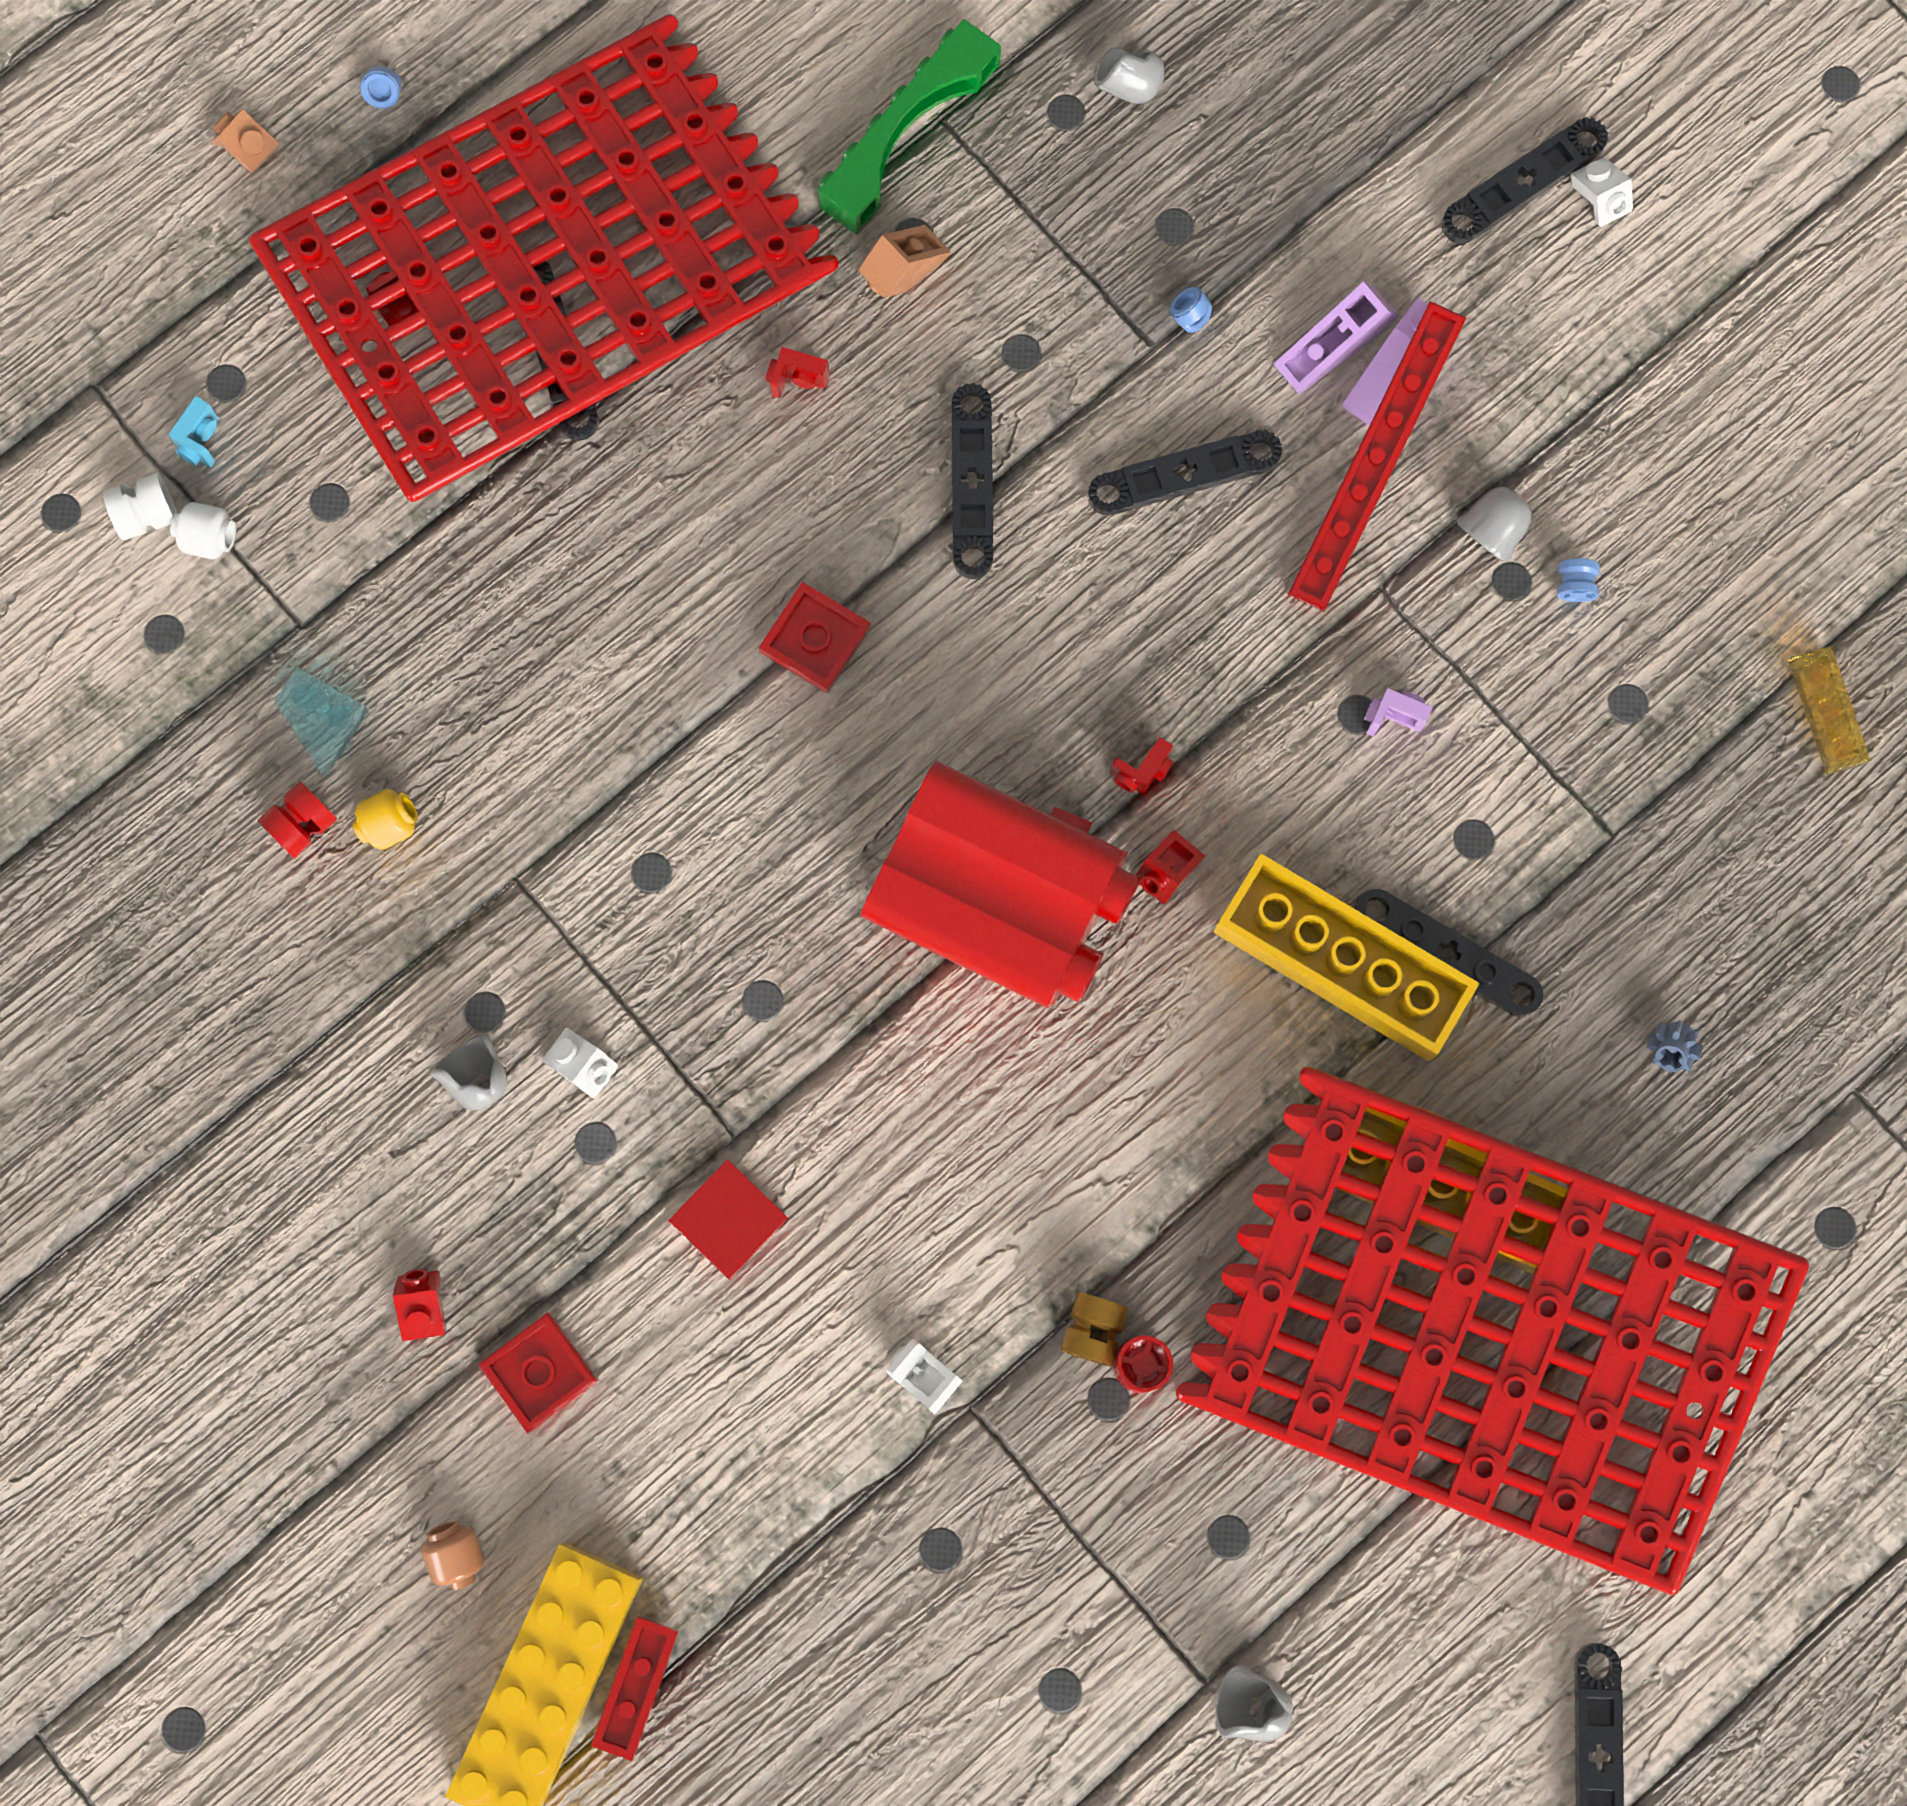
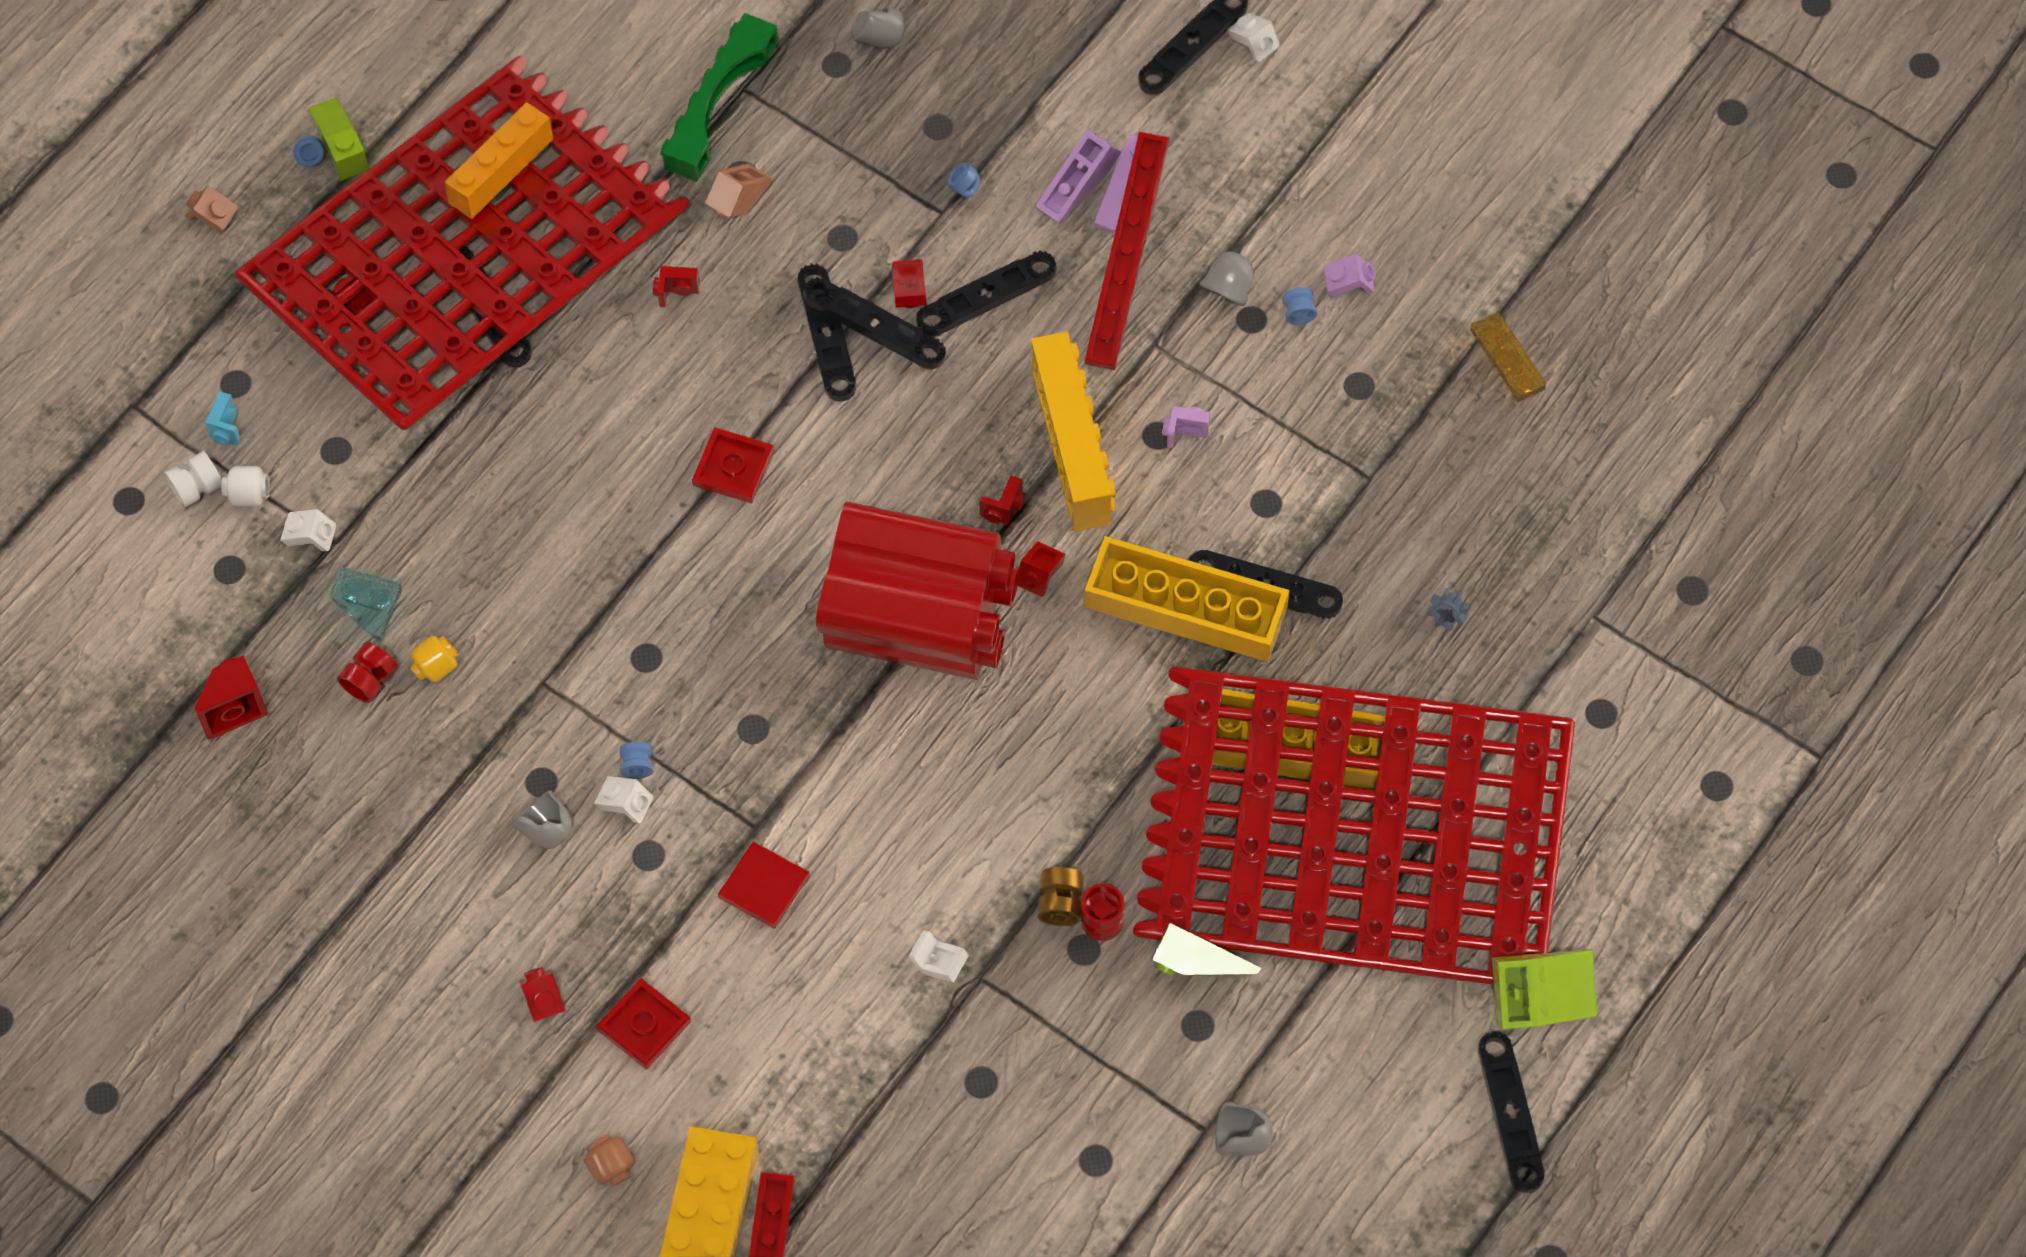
camera: 10 degrees left, 15 degrees down
(117, 818) = (229, 698): none -> red slope
(270, 605) = (308, 528): none -> white bracket
(422, 78) = (339, 138): none -> lime slope
(605, 1015) = (636, 760): none -> medium blue wheel
(608, 158) = (498, 160): none -> light orange brick
(1054, 501) = (859, 313): none -> black piece
(1090, 438) = (908, 283): none -> red bracket
(1250, 692) = (1072, 431): none -> yellow brick
(1250, 1454) = (1193, 955): none -> slope
(1650, 551) = (1349, 275): none -> lavender bracket
(1677, 1607) = (1544, 988): none -> lime slope

